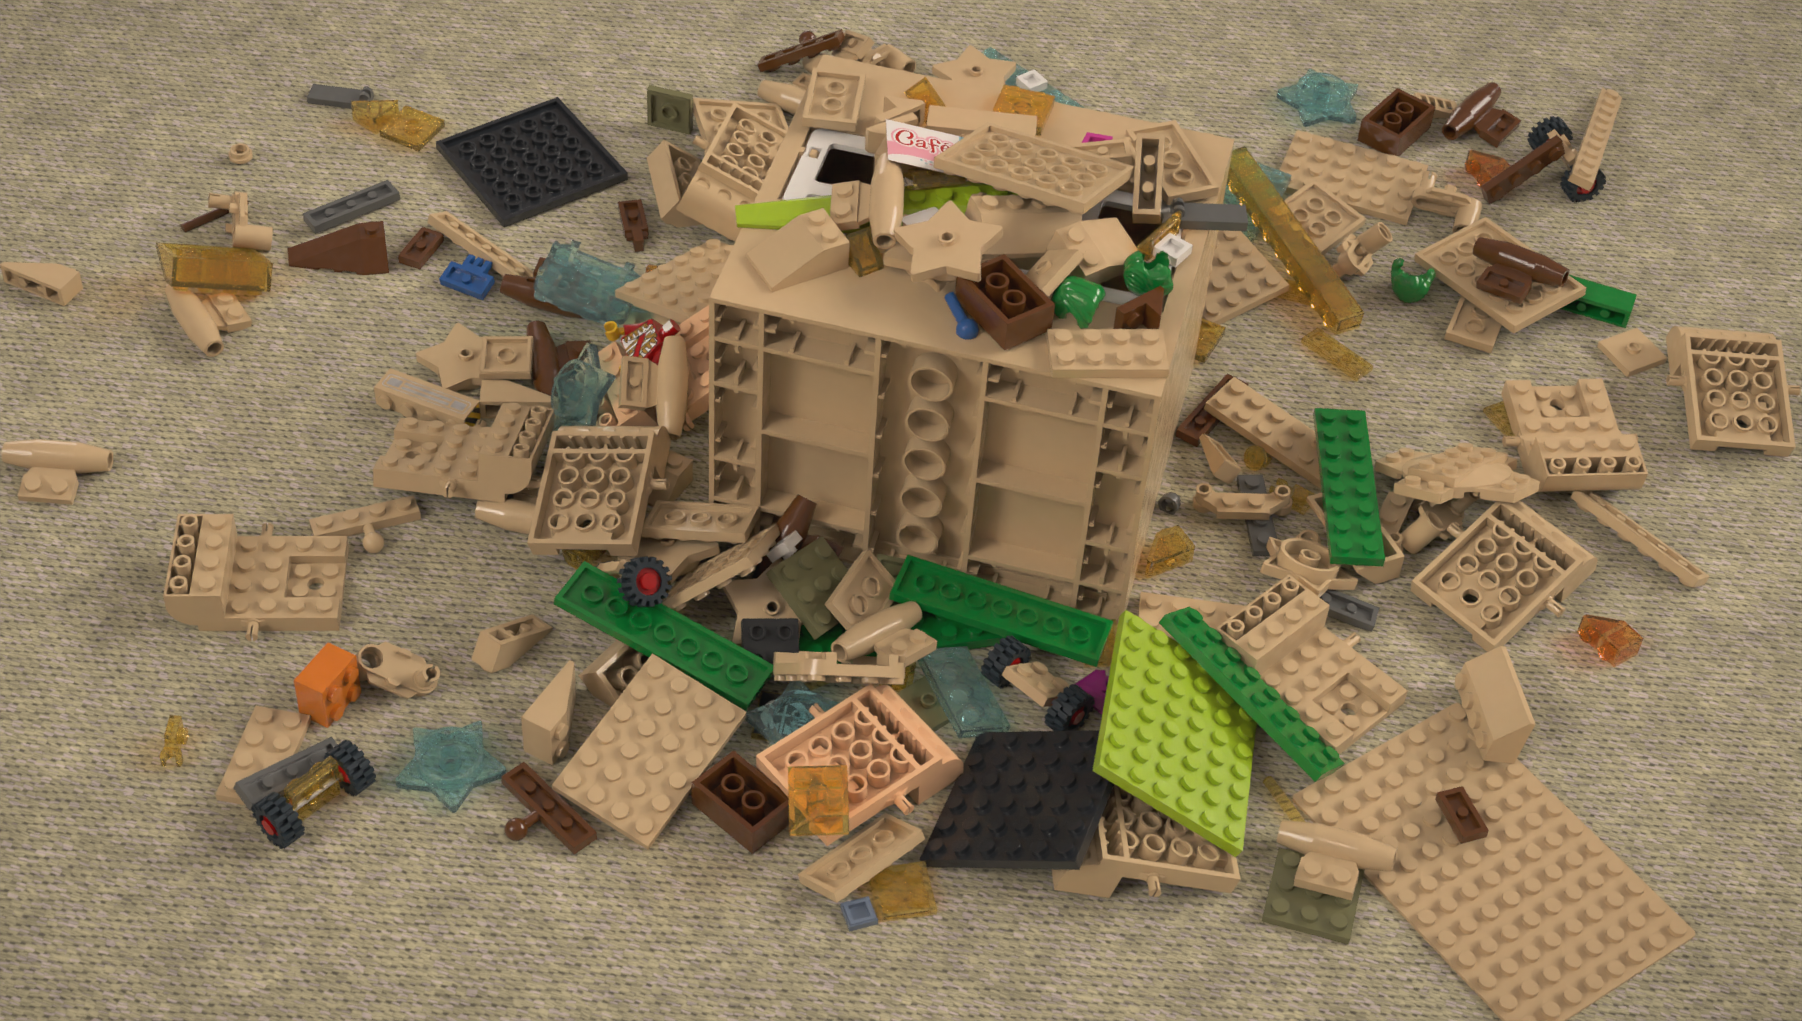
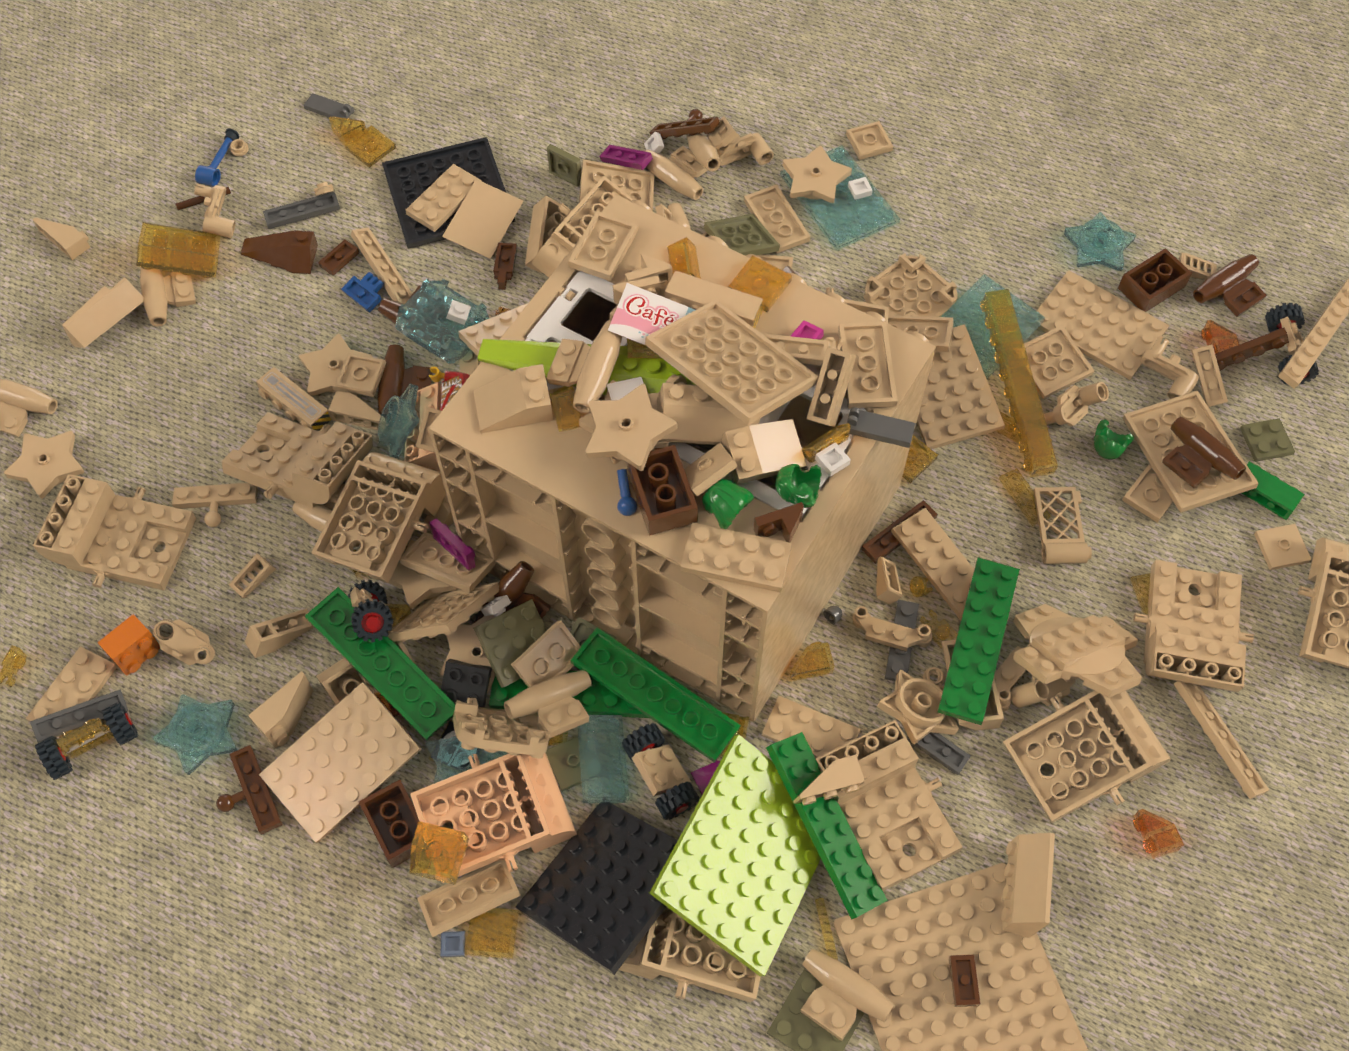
camera: 20 degrees right, 15 degrees up
(126, 520) = (45, 462): none -> tan plate
(140, 347) = (102, 313): none -> tan slope
(217, 183) = (210, 174): none -> blue piece
(372, 178) = (323, 188): none -> tan plate
(451, 573) = (256, 580): none -> tan slope
(531, 164) = (441, 198): none -> tan plate
(589, 179) = (483, 218): none -> tan sticker
(605, 273) = (458, 312): none -> white plate
(704, 497) = (453, 544): none -> magenta plate
(743, 91) = (626, 157): none -> magenta plate
(767, 72) = (654, 143): none -> white plate
(1020, 38) = (869, 140): none -> tan plate
(1253, 632) = (839, 776): none -> tan slope
(1398, 393) = (1066, 549): none -> tan piece
(1493, 202) = (1209, 375): none -> tan plate
(1577, 255) = (1267, 440): none -> olive plate

